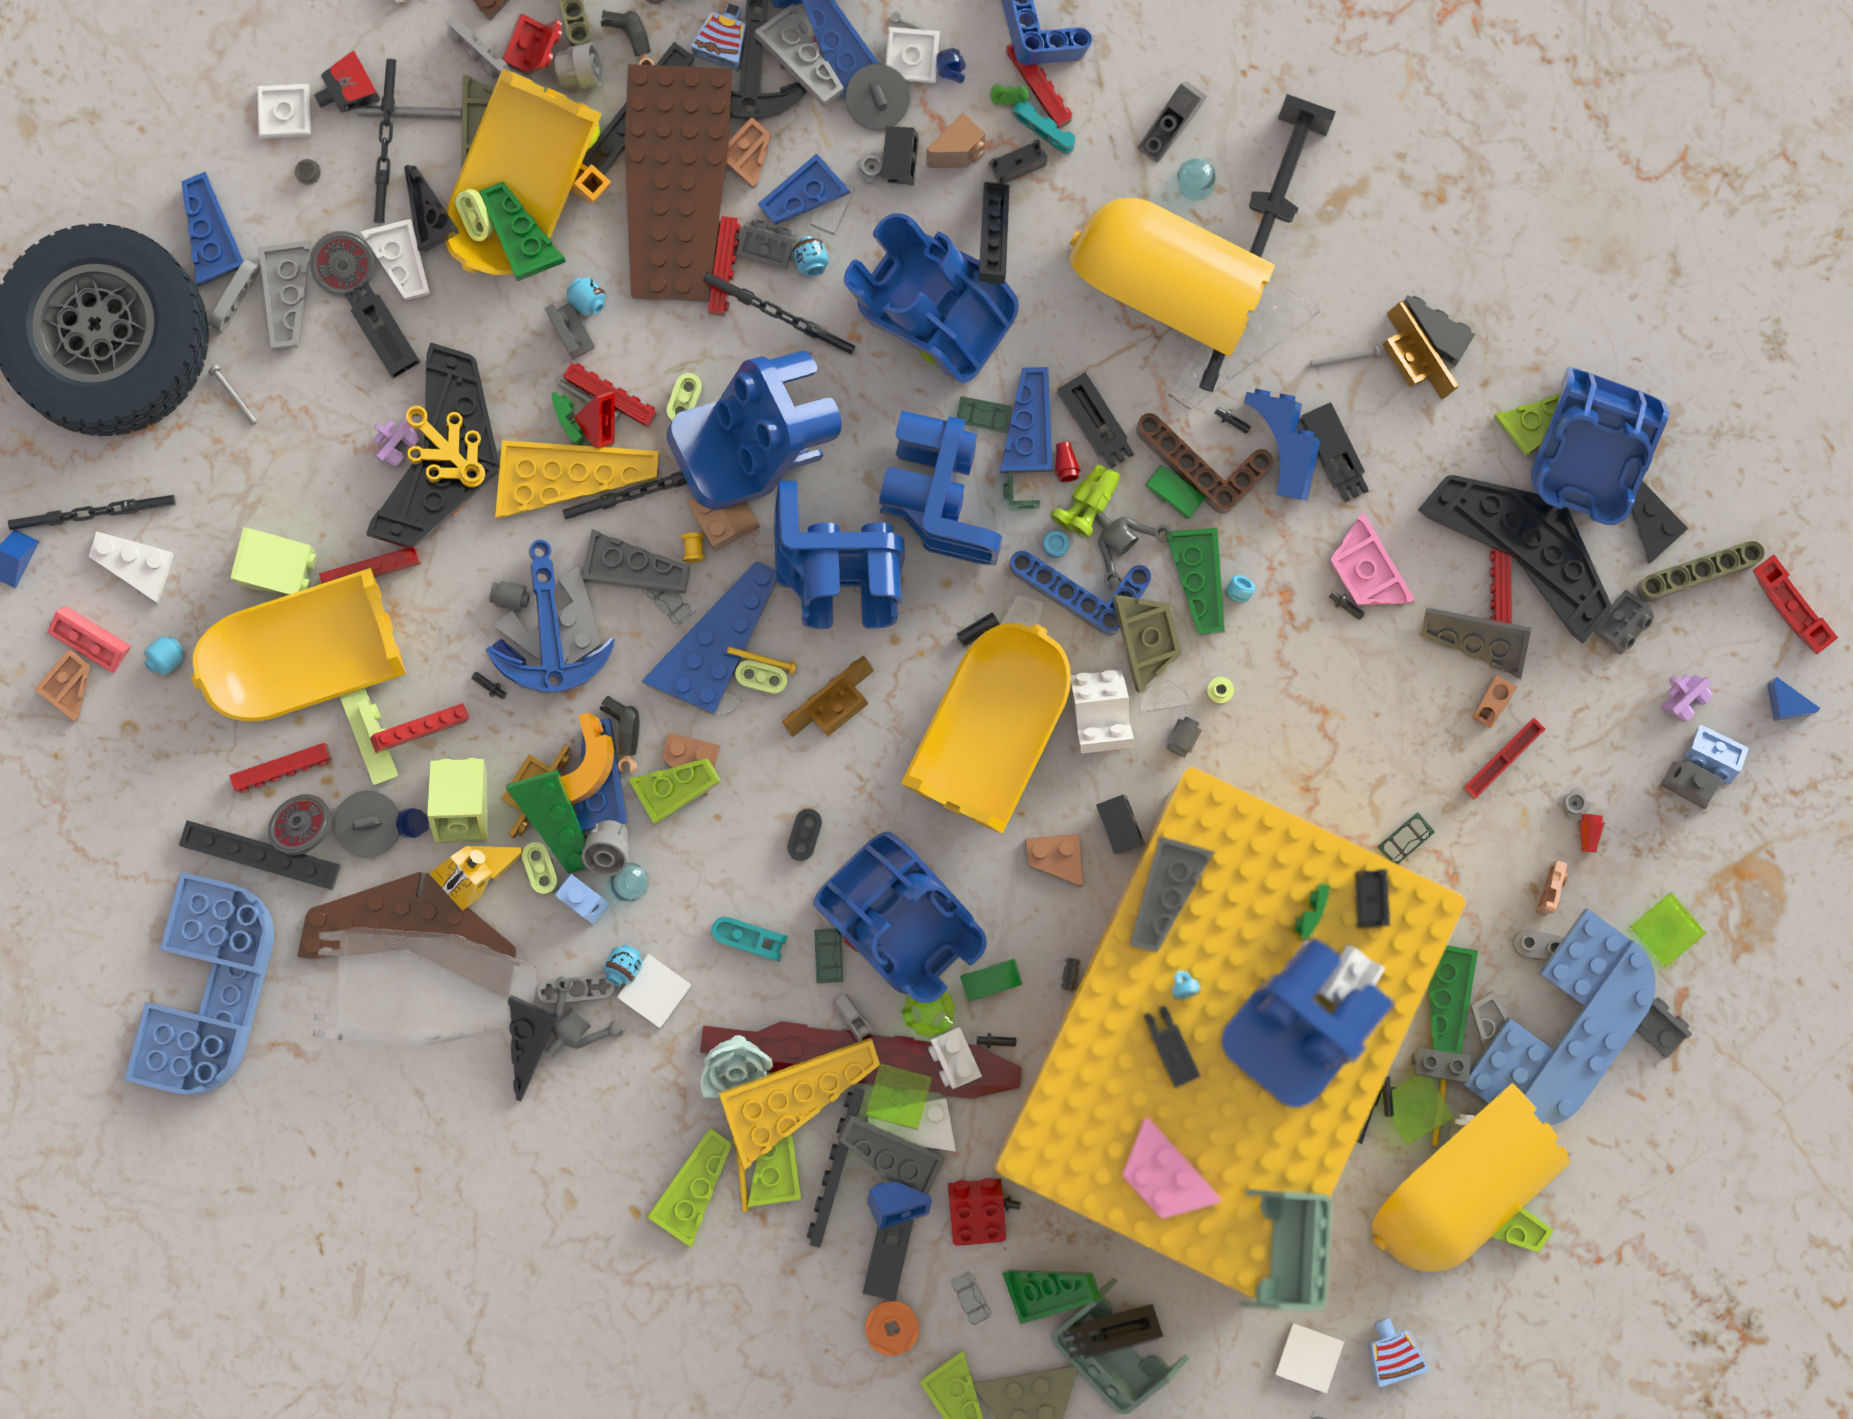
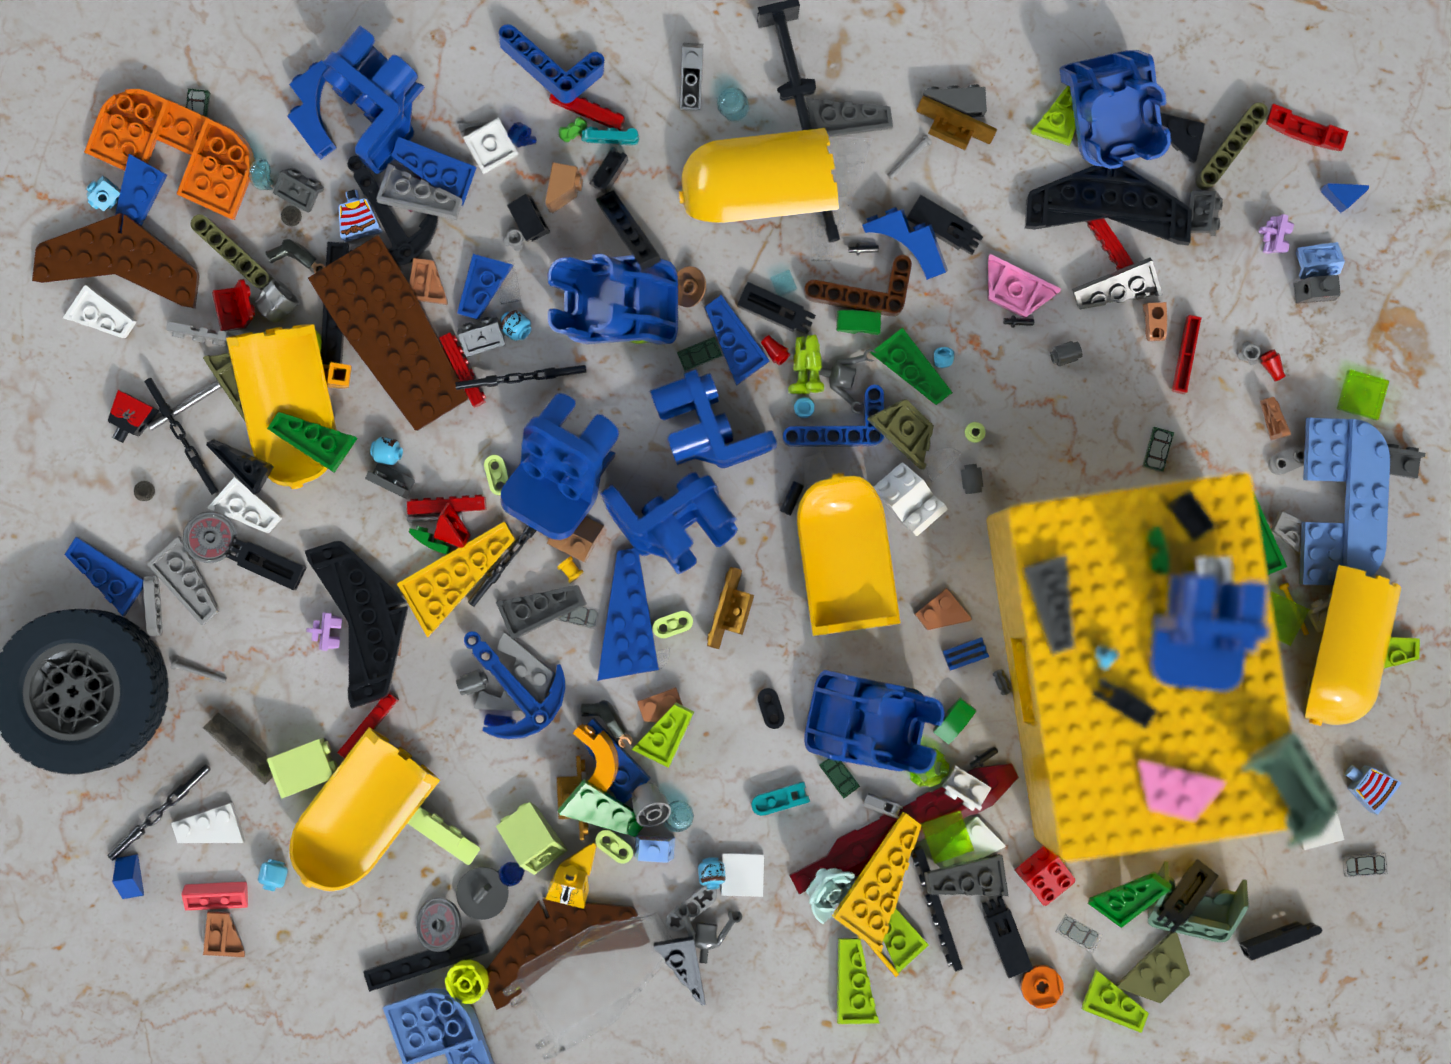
camera: 30 degrees left, 5 degrees up
(223, 499) = (240, 747): none -> clear smoke slope
(280, 767) = (397, 899): red piece -> none
(284, 111) = (100, 460): white tile -> none
(288, 902) = (467, 981): none -> neon yellow cylinder
(419, 728) = (474, 810): red piece -> none
(447, 450) = (365, 615): yellow plant -> none
(474, 215) = (275, 446): yellowish green plate -> none
(494, 689) = (499, 749): black piece -> none
(790, 667) = (687, 604): yellow piece -> none
(877, 96) = (487, 188): dark grey shield -> none
(897, 1203) = (992, 907): blue slope -> none
(1017, 505) = (752, 396): clear green bracket -> none
(1021, 337) = (688, 278): none -> medium nougat dish
(1074, 923) = (949, 659): none -> blue tile
(1120, 824) = (970, 563): black hinge -> none
(1123, 399) = (783, 283): none -> clear light blue tile
(1308, 271) = (848, 118): none -> dark grey wing
(1374, 671) = (1066, 353): none -> dark grey brick
(1442, 1065) = (1285, 580): dark grey bracket -> none

